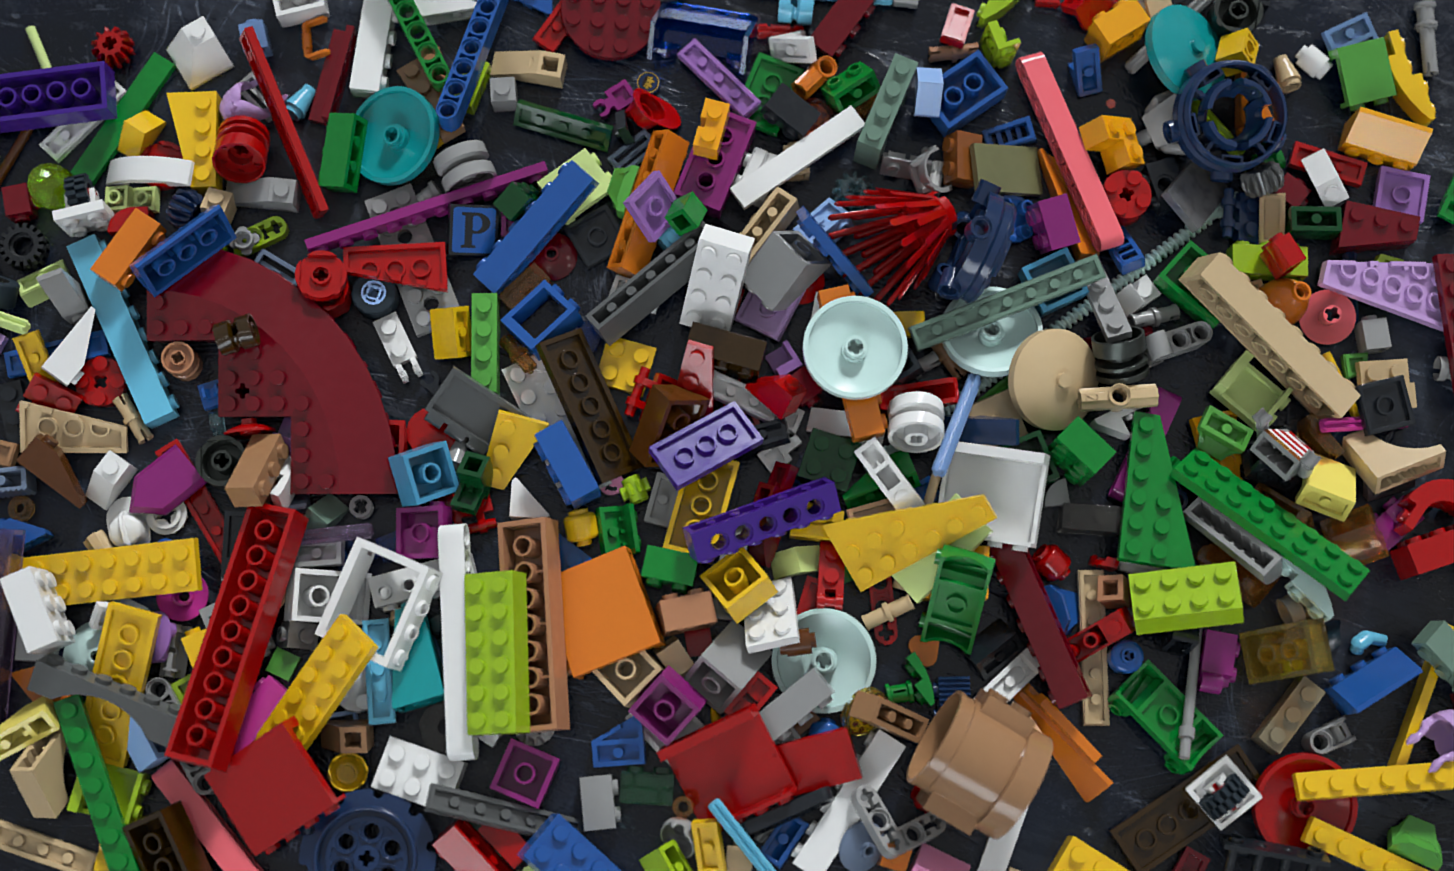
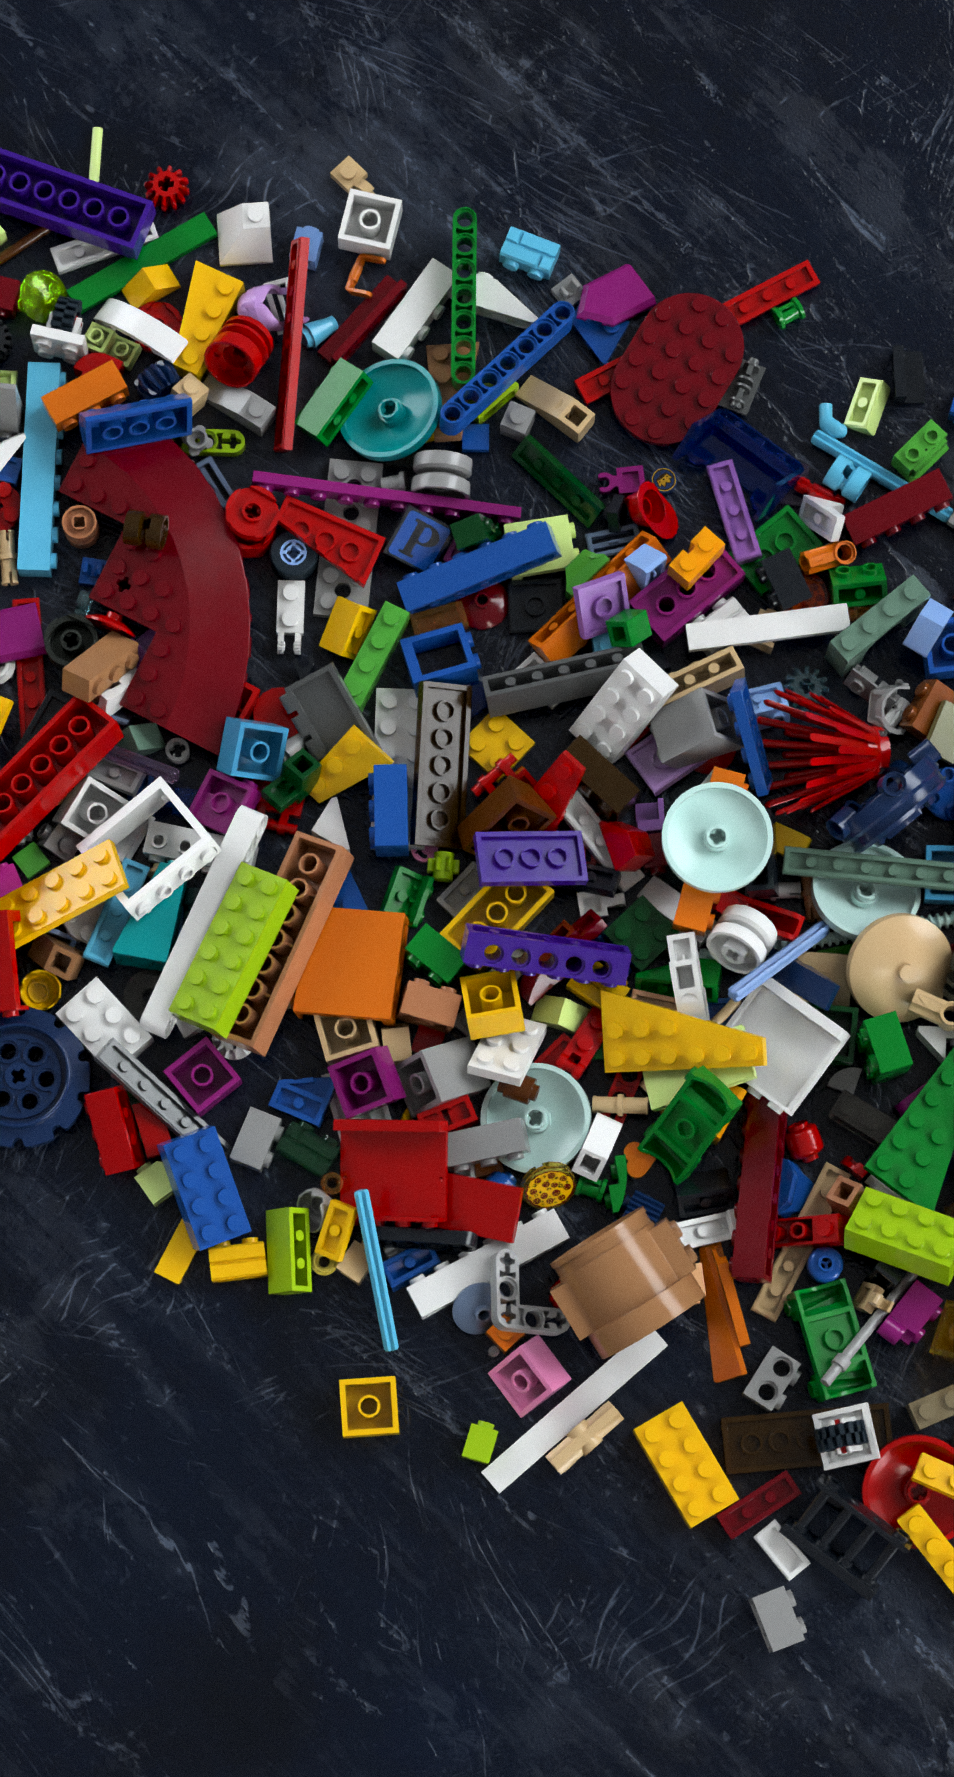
camera: 30 degrees right, 0 degrees up
(477, 125) = (475, 438): none -> blue tile
(518, 354) = (399, 680): clear orange axle -> none
(580, 526) = (373, 875): yellow head -> none
(672, 155) = (646, 564): none -> light blue slope
(888, 716) = (567, 1200): medium nougat brick -> none
(889, 658) = (597, 1147): none -> white slope
(1126, 775) = (766, 1376): none -> light grey brick
(1175, 664) = (870, 1298): none -> tan plate

